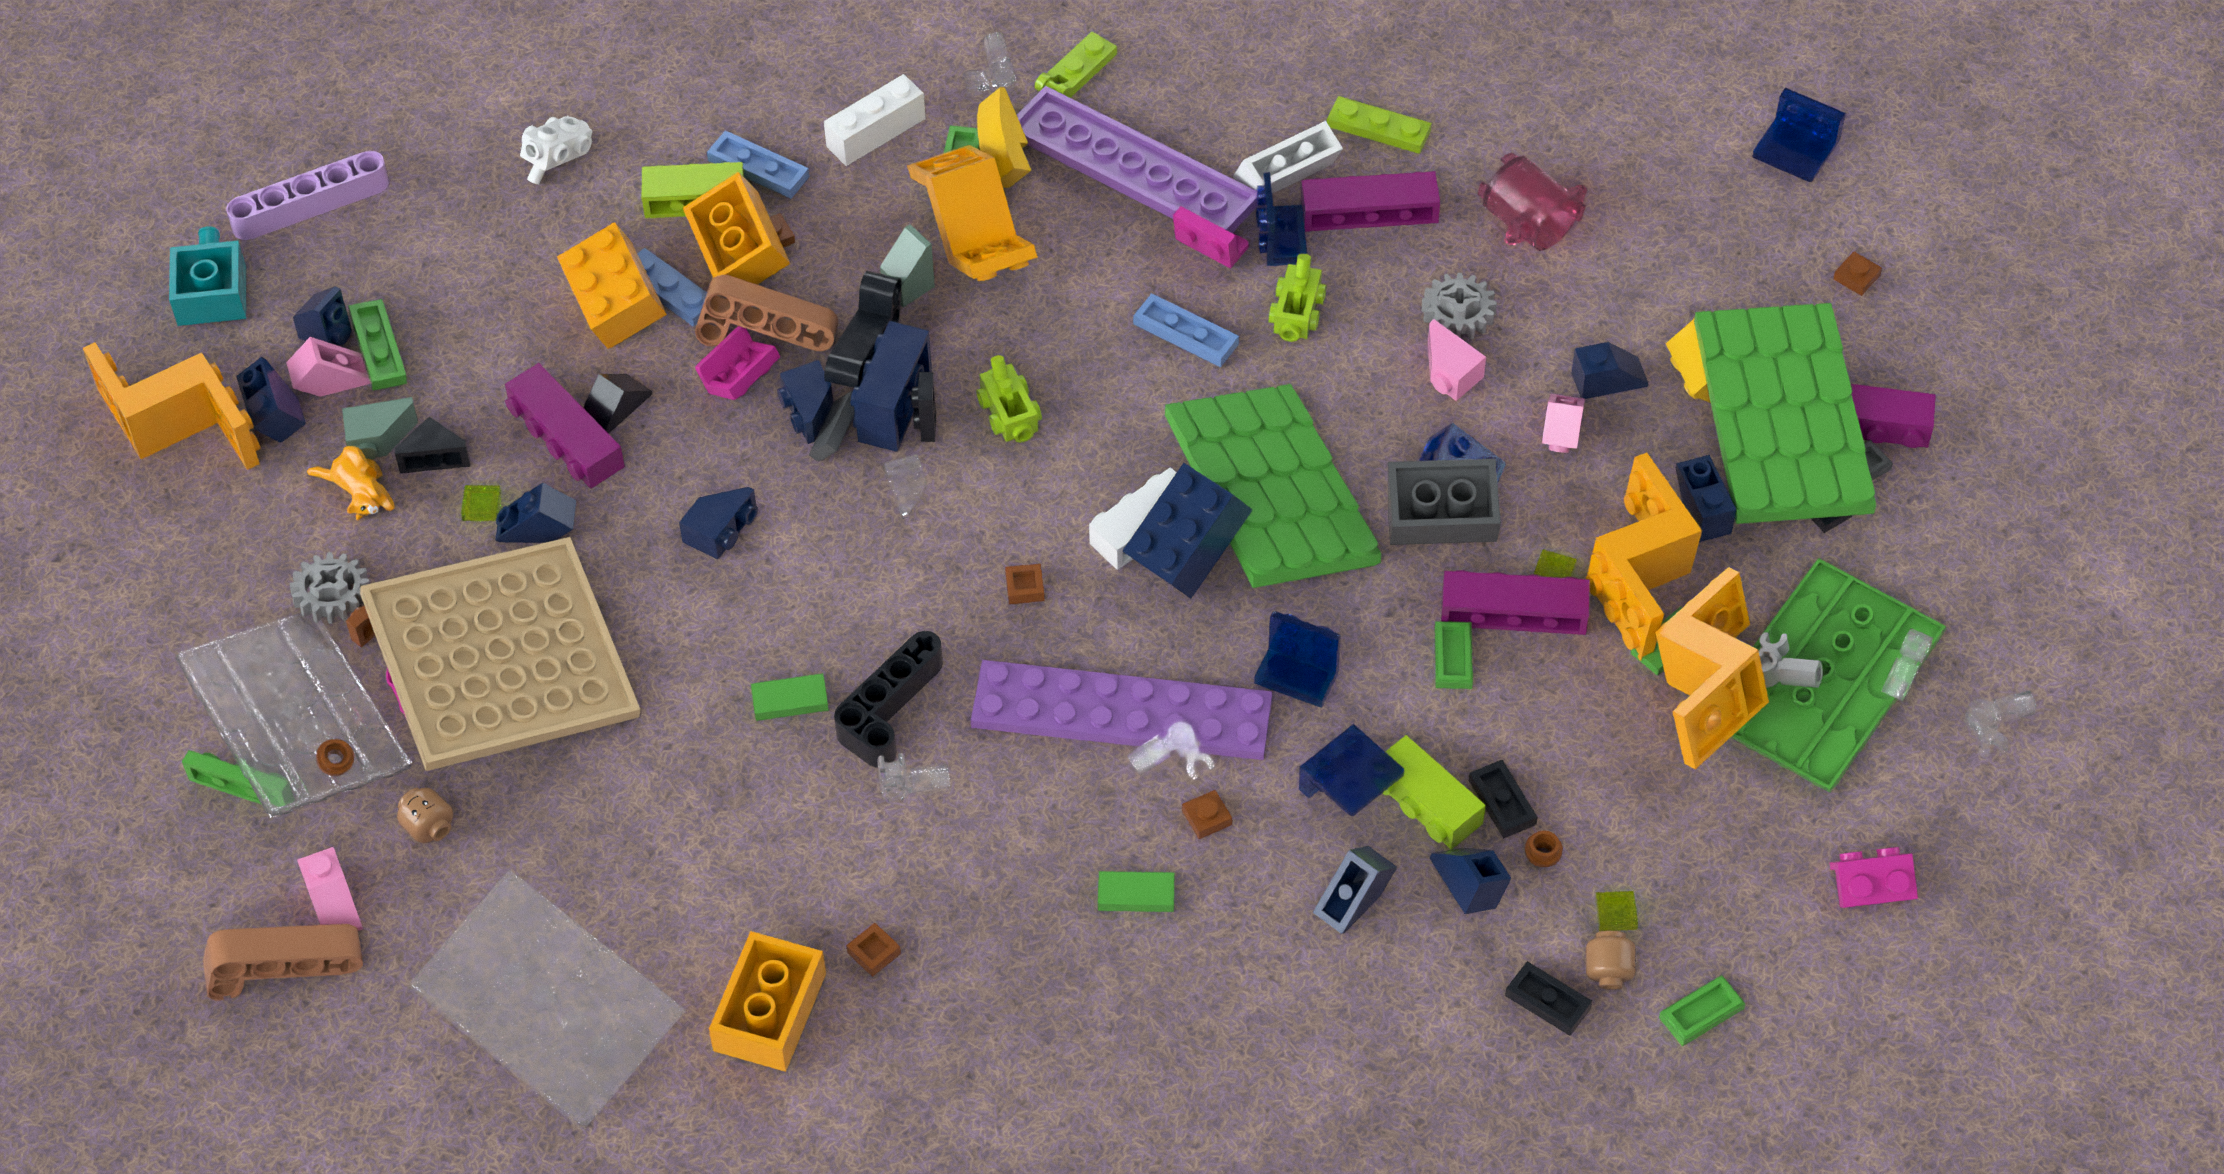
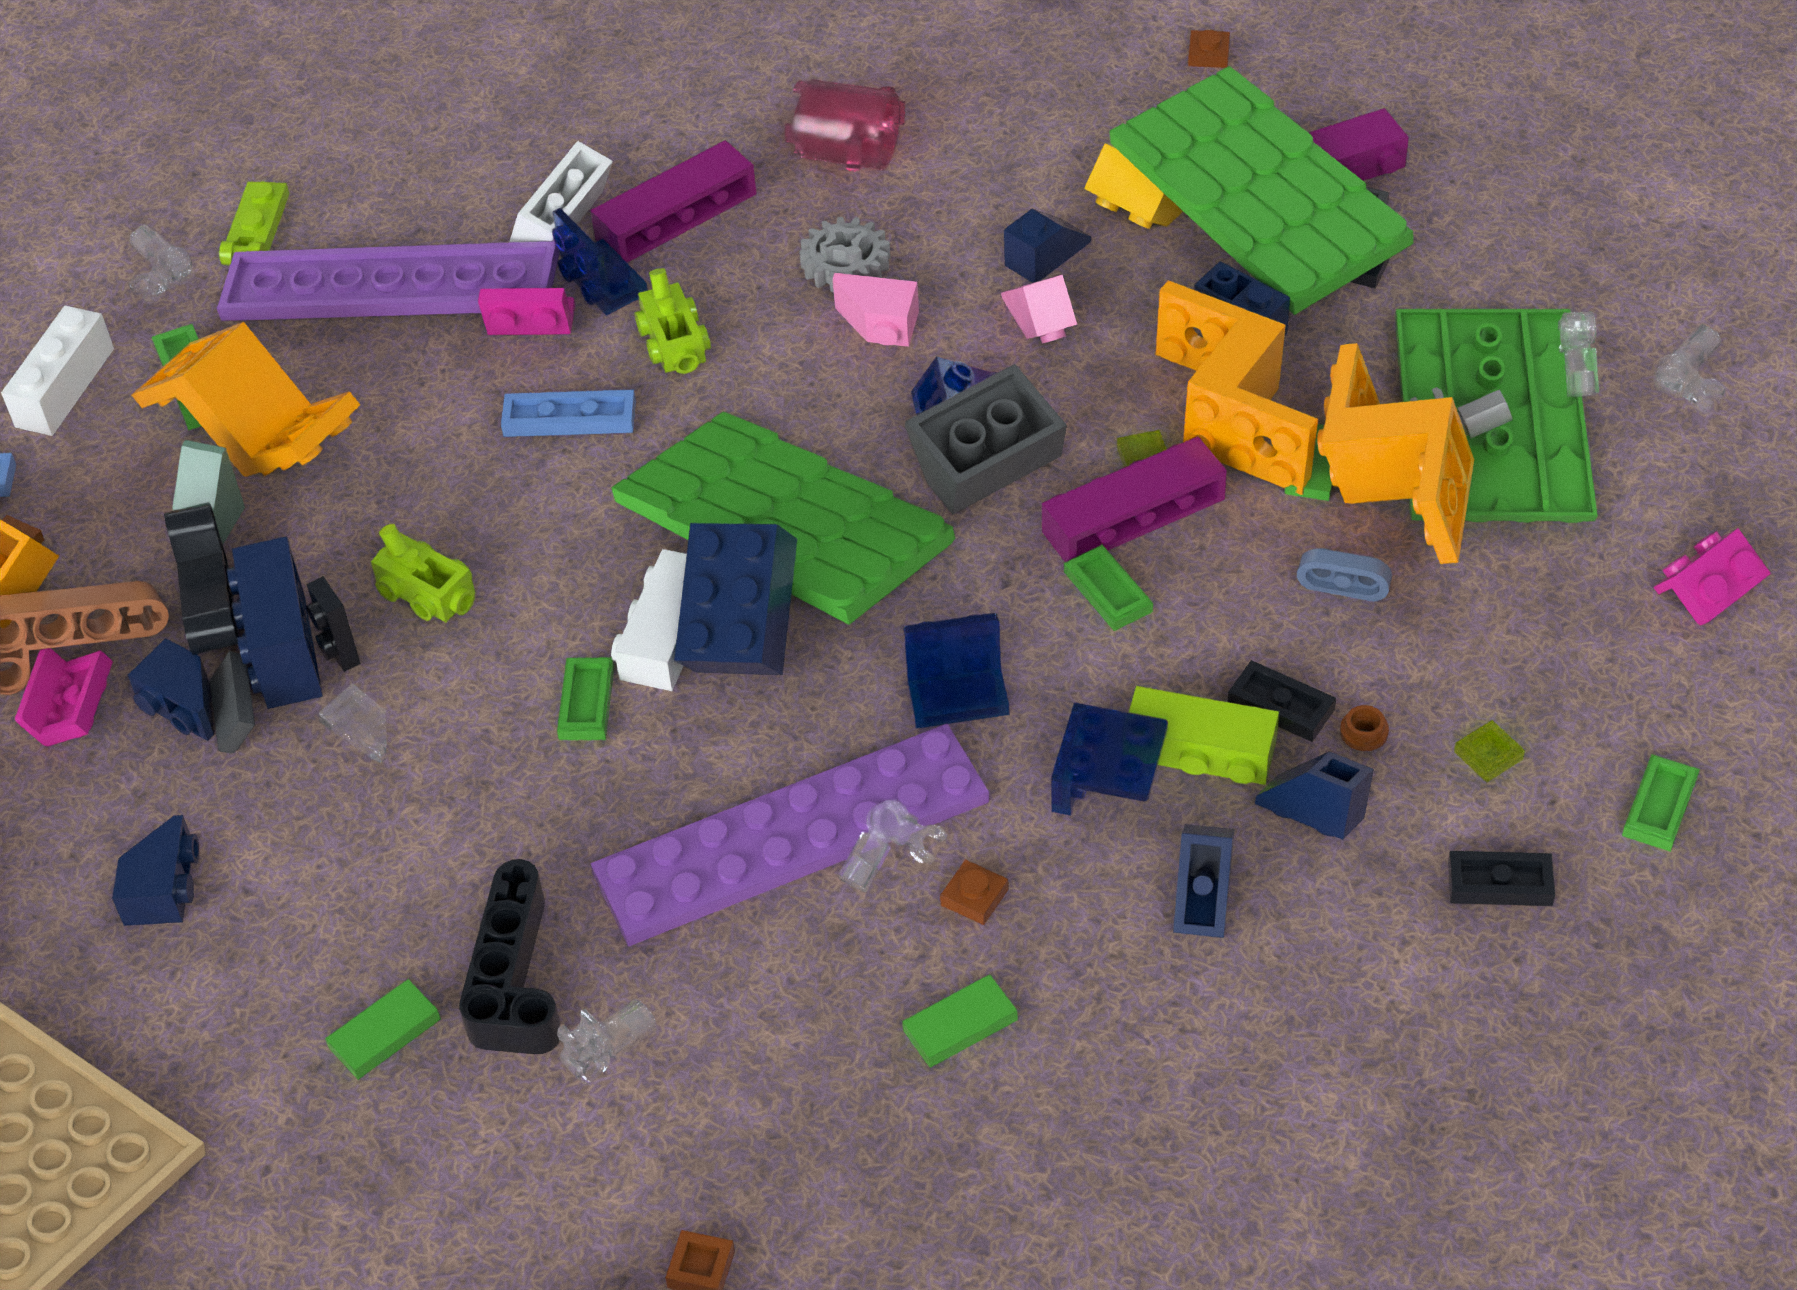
camera: 30 degrees left, 5 degrees down
(1002, 137) = (211, 309): yellow slope -> none
(1024, 584) = (580, 756): dark orange plate -> none
(1058, 544) = (585, 699): none -> bright green tile
(1379, 124) = (628, 131): lime plate -> none
(1610, 959) = (1532, 800): medium nougat head -> none
(1616, 734) = (1344, 574): none -> sand blue plate

